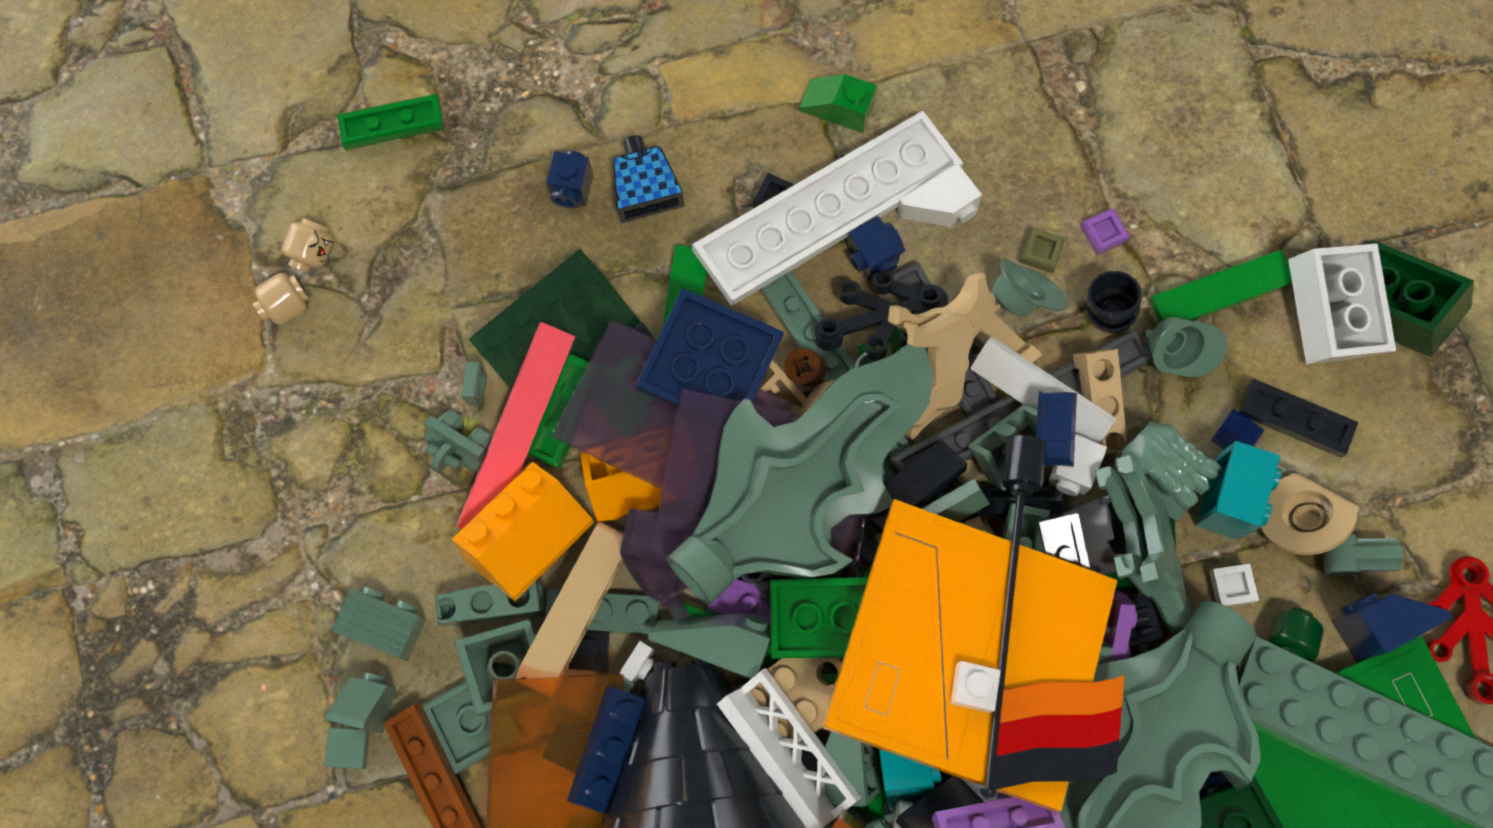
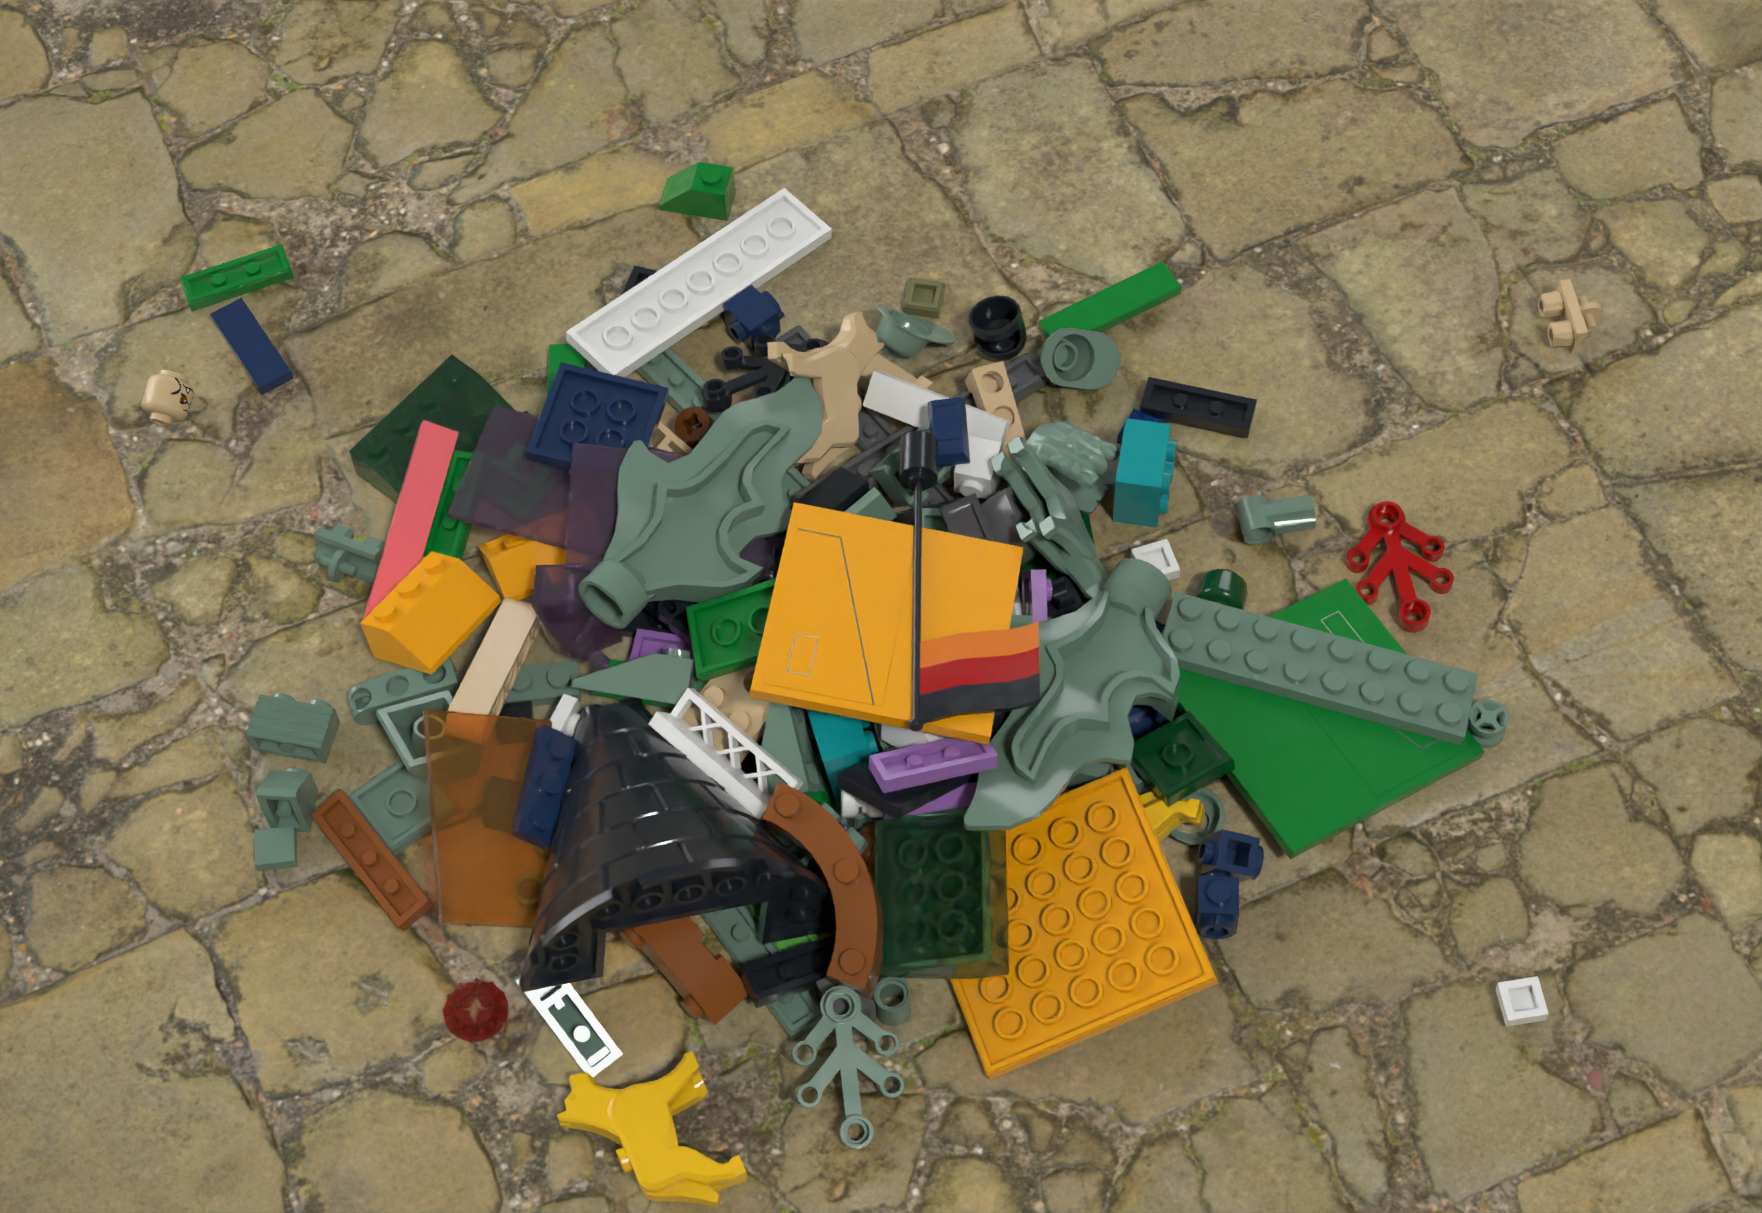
camera: 10 degrees left, 15 degrees down
(281, 298) = (147, 450): tan head -> none
(394, 198) = (251, 346): none -> dark blue tile
(474, 384) = (359, 498): sand green tile -> none
(569, 179) = (432, 299): dark blue brick -> none
(644, 181) = (510, 292): torso -> none
(942, 199) = (814, 265): white slope -> none
(975, 687) = (892, 642): white plate -> none
(1105, 232) = (985, 272): medium lavender tile -> none
(1308, 517) = (1214, 488): tan hat -> none
(1341, 303) = (1222, 295): white slope -> none
(1382, 624) = (1305, 562): dark blue slope -> none
(1422, 299) = (1290, 284): dark green slope -> none

